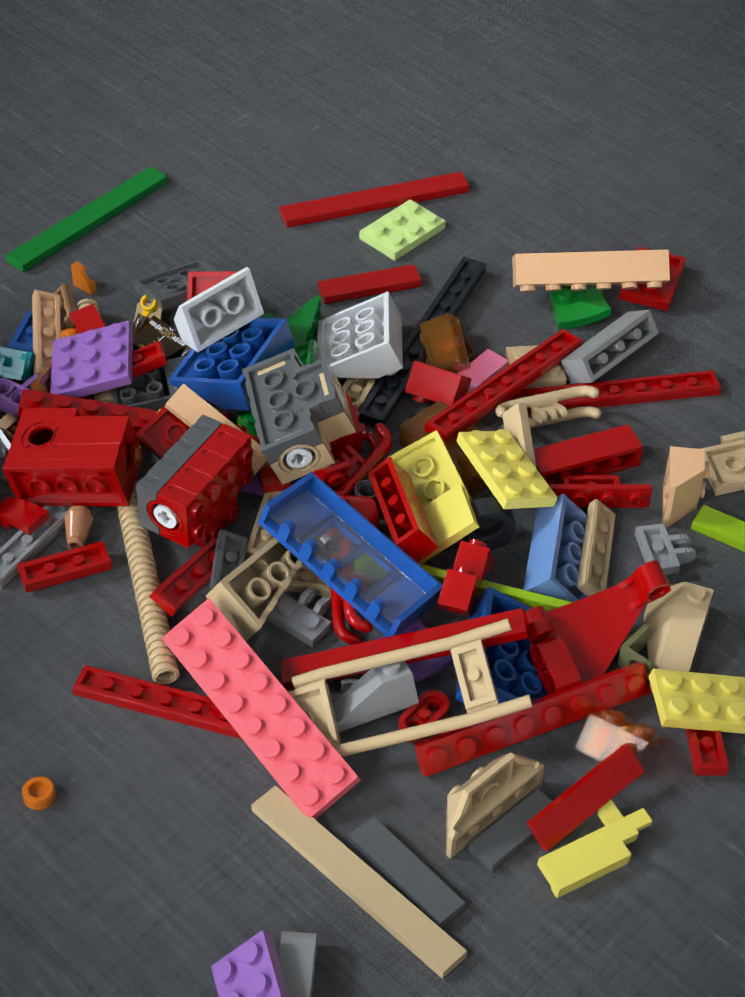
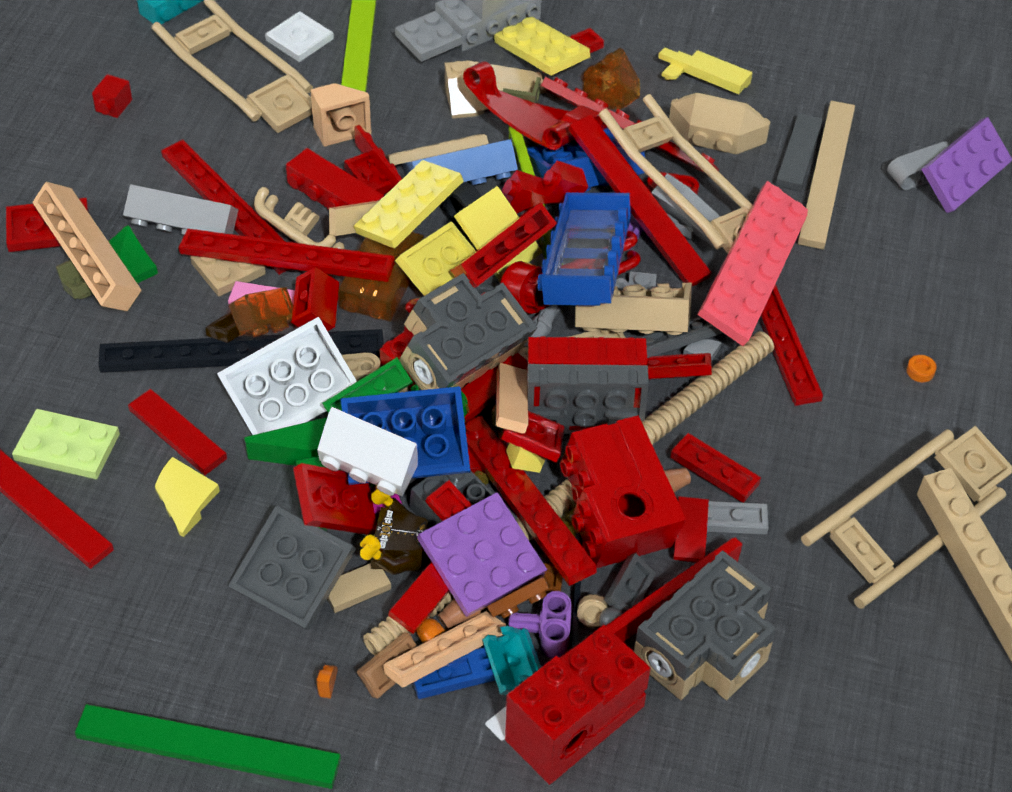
camera: 120 degrees left, 5 degrees up
(298, 268) = (184, 493): none -> light yellow slope
(585, 797) = (674, 76): red tile -> none
(665, 548) = (406, 119): light grey hinge -> none

